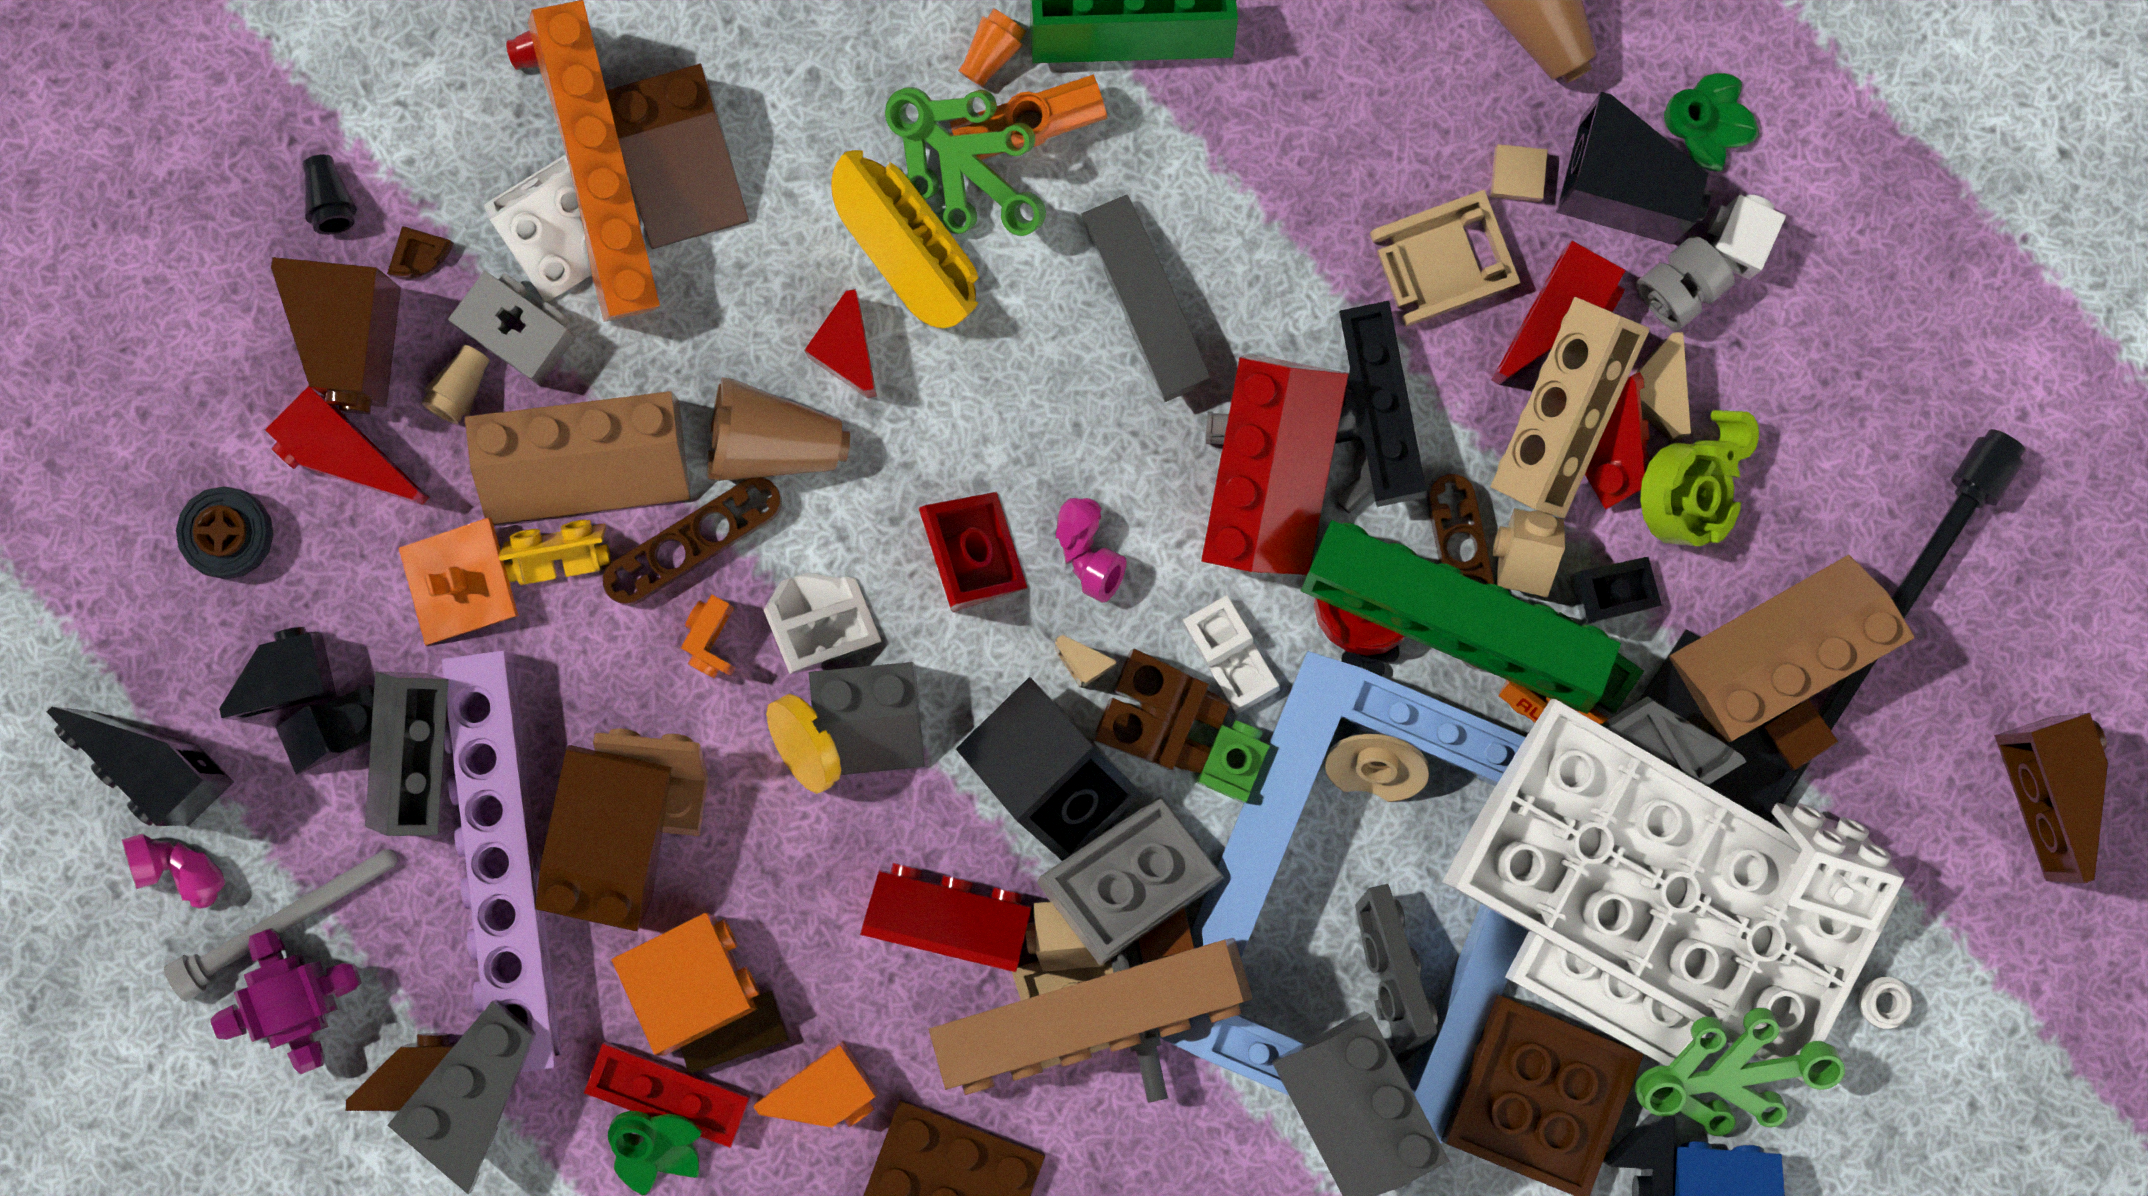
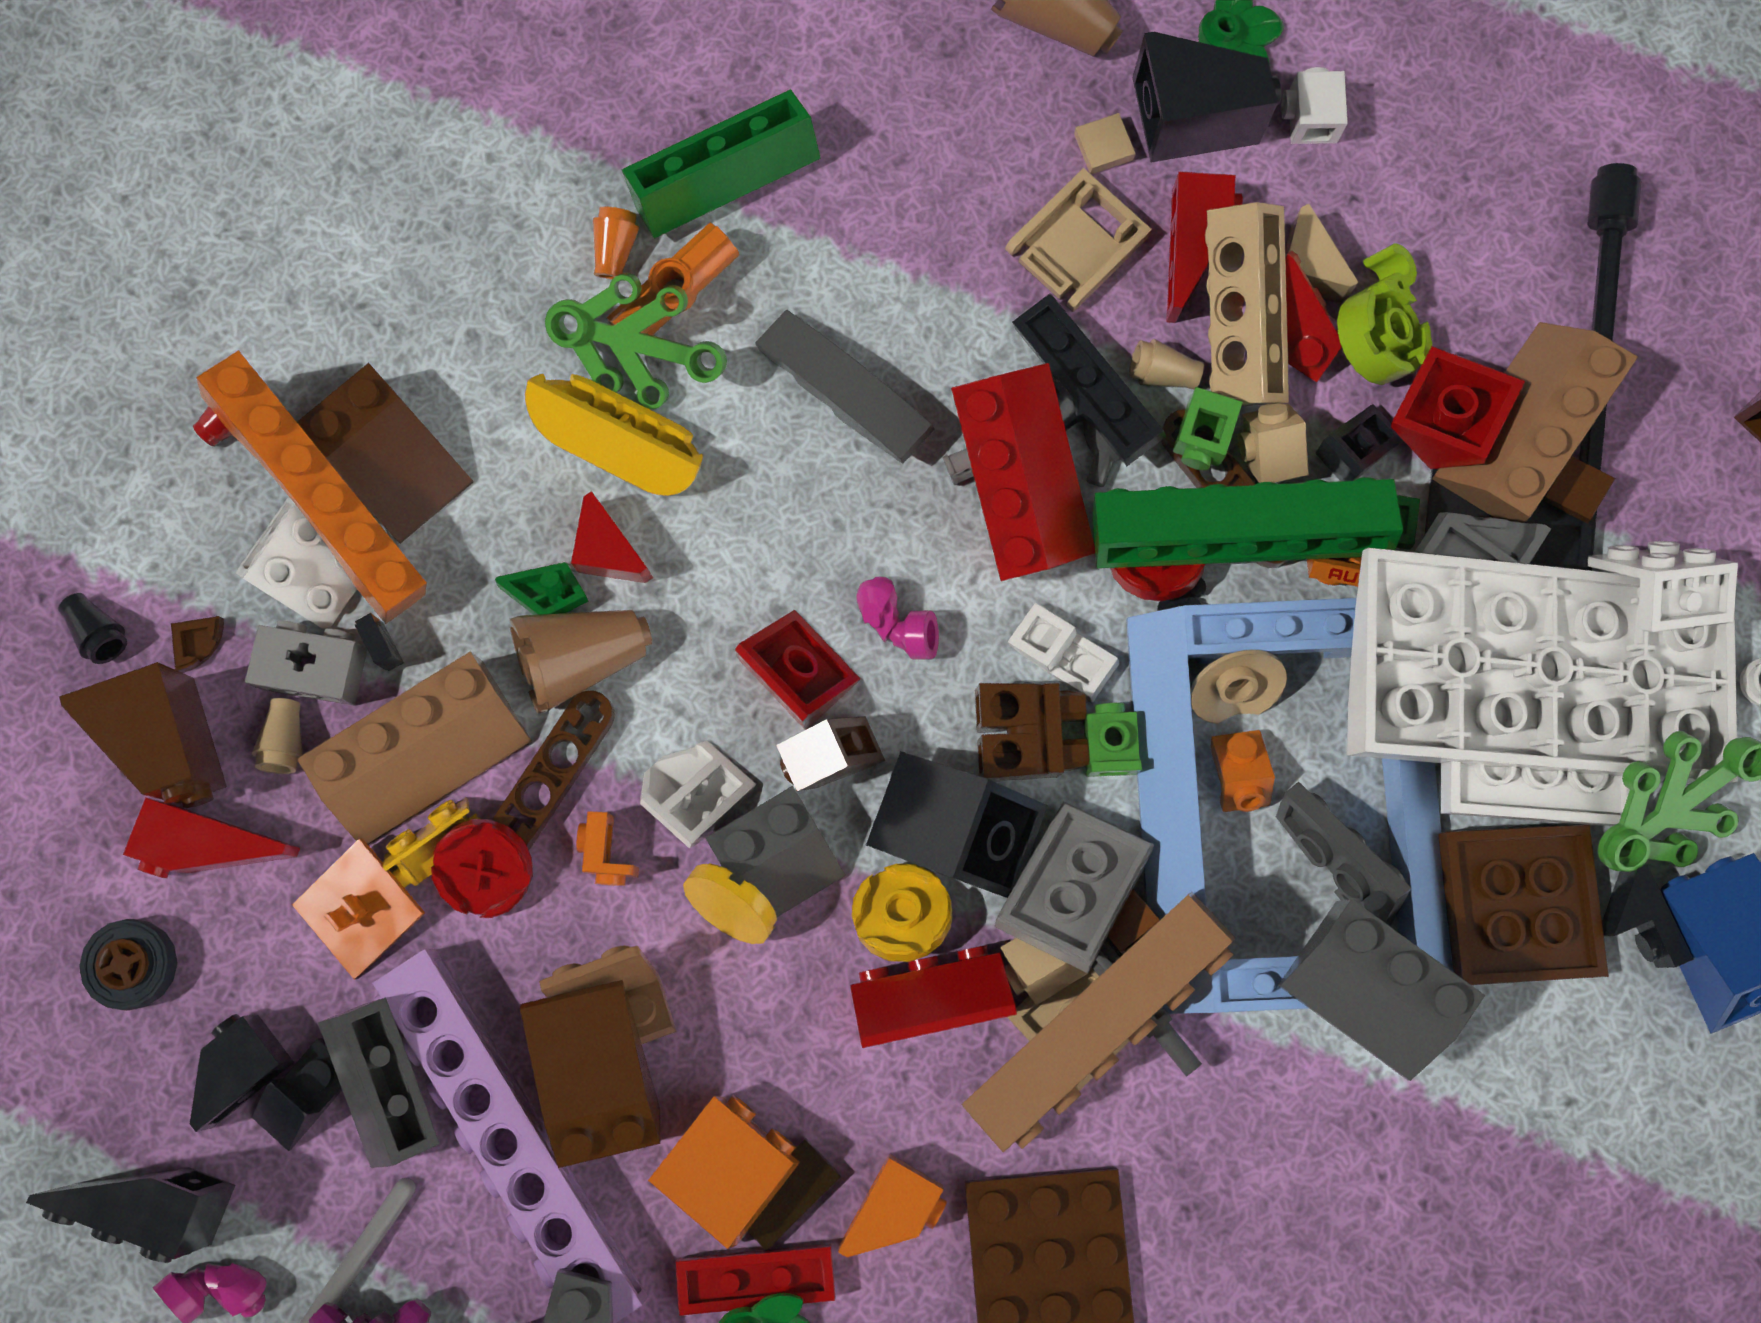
camera: 15 degrees left, 5 degrees down
(589, 338) = (378, 642): none -> black tile
(589, 599) = (482, 868): none -> red tile
(768, 361) = (544, 589): none -> green piece
(959, 827) = (902, 912): none -> yellow tile
(963, 646) = (829, 752): none -> slope
(1081, 661) = (939, 714): tan slope -> none
(1344, 847) = (1243, 771): none -> orange bracket
(1463, 423) = (1163, 366): none -> tan cone
(1483, 495) = (1213, 415): none -> bright green brick
(1693, 276) = (1288, 164): light grey wheel -> none
(1718, 602) = (1455, 410): none -> red slope

